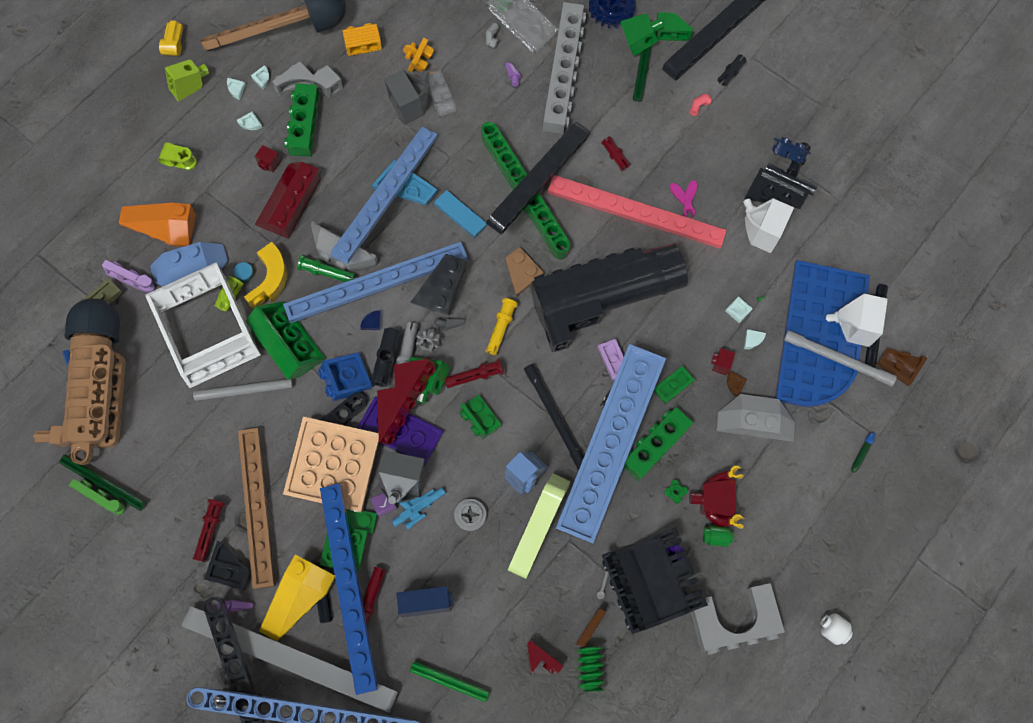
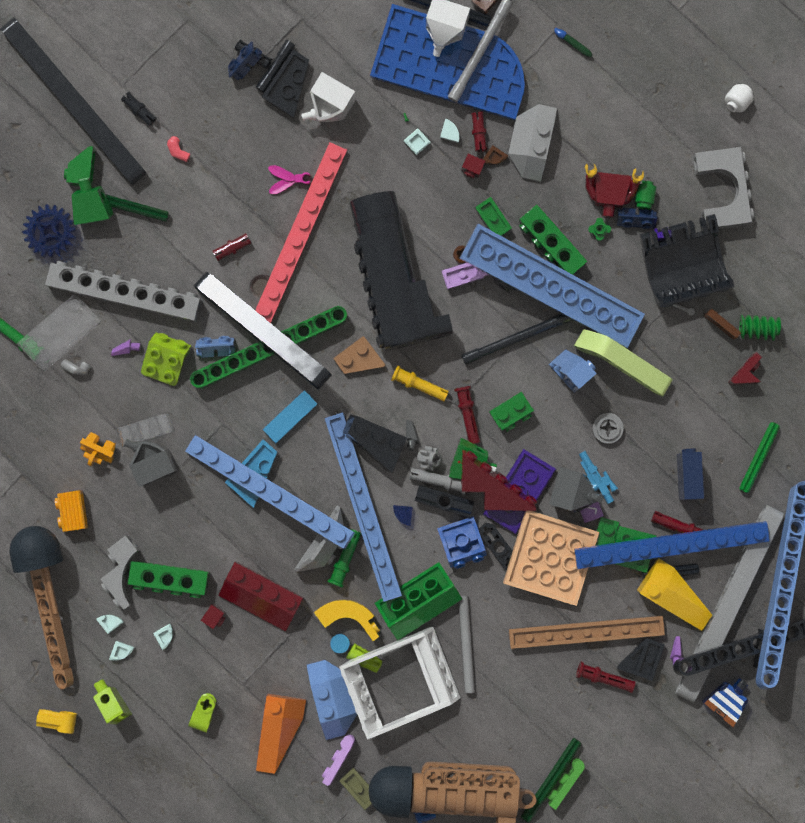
camera: 80 degrees left, 15 degrees up
(181, 663) = (727, 701): none -> torso
(507, 102) = (164, 358): none -> lime bracket
(520, 138) = (207, 346): none -> medium blue hinge
(692, 519) = (628, 218): none -> dark blue hinge
(757, 366) = (479, 131): none -> dark red pin

